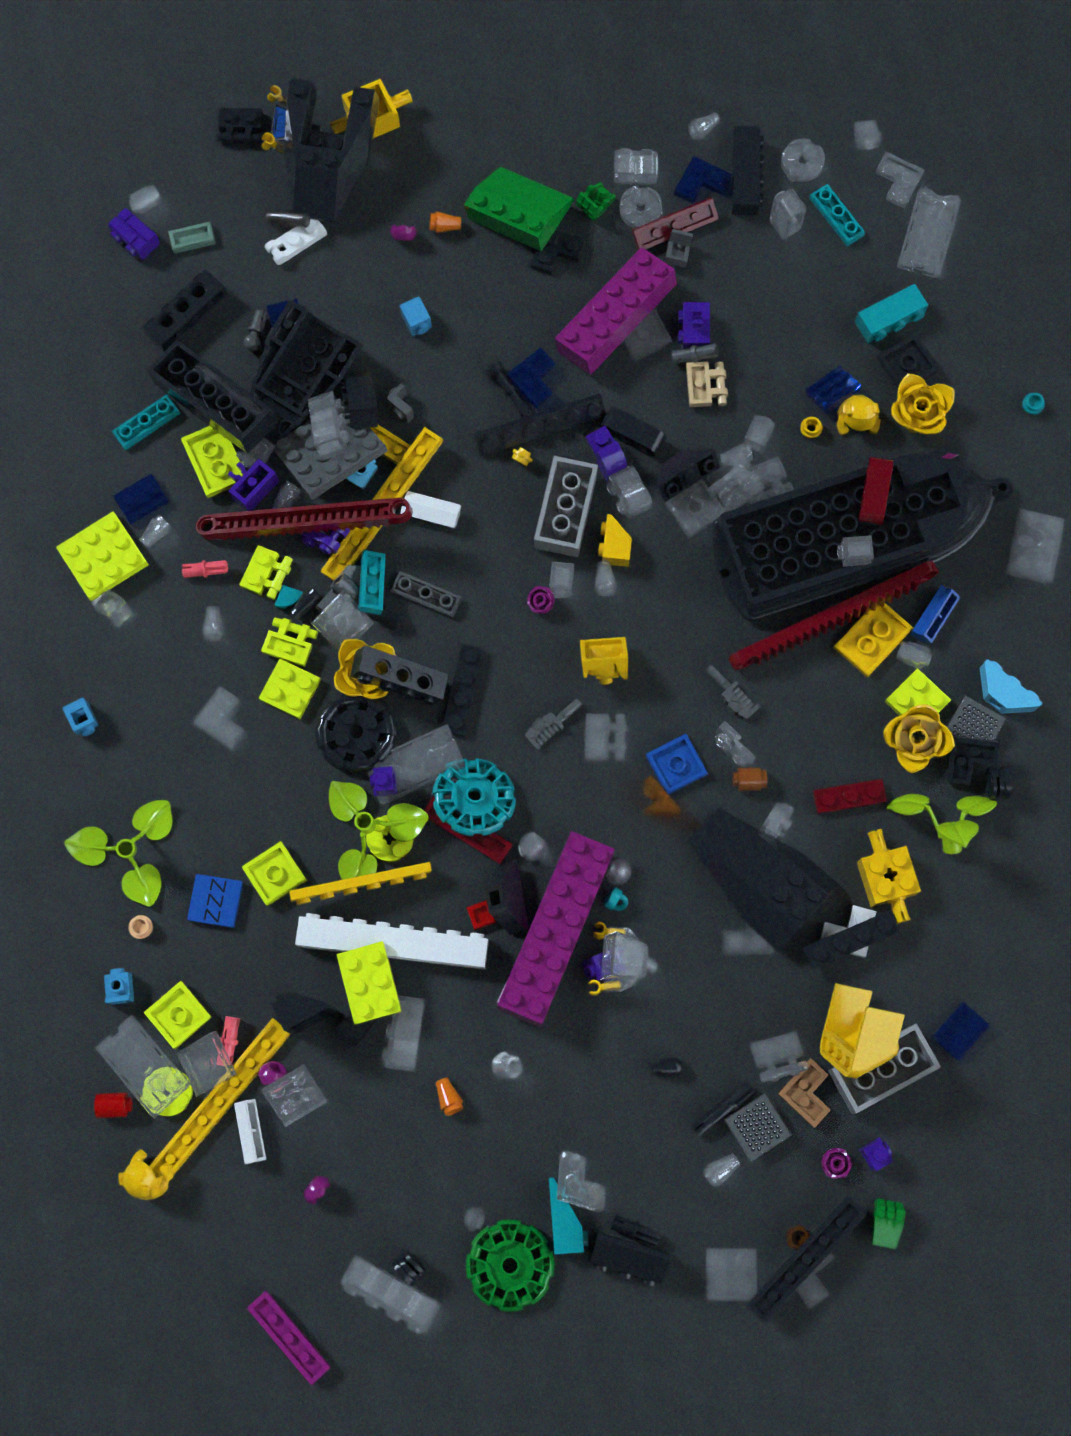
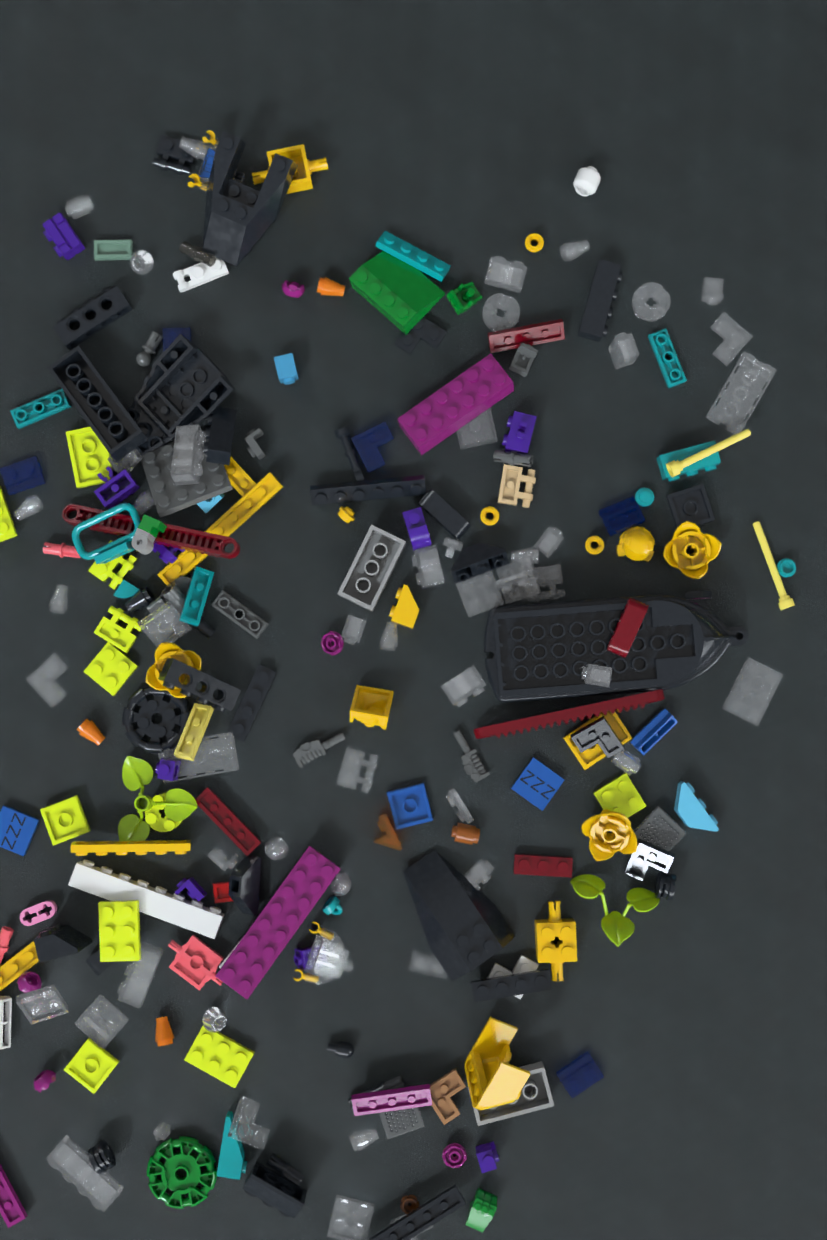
camera: 10 degrees right, 10 degrees up
(227, 241) = (141, 262): none -> clear piece
(259, 109) = (193, 147): none -> clear cone
(261, 986) = (40, 917): none -> bright pink beam
(267, 547) = (113, 549): none -> teal bar
(282, 764) = (91, 732): none -> orange cone
(301, 517) = (146, 534): none -> leg
(369, 1159) = (91, 1065): none -> neon yellow plate
(370, 1102) = (101, 1021): none -> clear bracket
(404, 733) = (193, 731): none -> light yellow plate
(433, 509) = (260, 543): white piece -> none
(446, 918) = (195, 891): none -> dark purple bracket
(468, 874) = (219, 858): none -> clear bracket
(468, 1004) = (195, 962): none -> coral plate
(474, 809) = (235, 808): teal plate -> none
(522, 1111) = (219, 1056): none -> neon yellow plate
(528, 170) = (413, 256): none -> teal plate
(651, 461) = (452, 544): none -> clear tile
(658, 123) = (534, 237): none -> yellow plate
(687, 417) = (492, 510): none -> yellow plate
(699, 53) = (586, 181): none -> white head
(699, 175) = (559, 293): clear blue plate -> none
(703, 610) = (463, 685): none -> clear brick
(744, 1108) = (391, 1100): none -> plate
(778, 1050) = (430, 1057): clear plate -> none
(818, 705) = (537, 784): none -> blue tile
(853, 363) = (644, 497): none -> teal plate
(871, 627) = (598, 733): none -> plate
(879, 319) = (675, 467): none -> light yellow piece
(1042, 438) = (785, 601): none -> light yellow piece

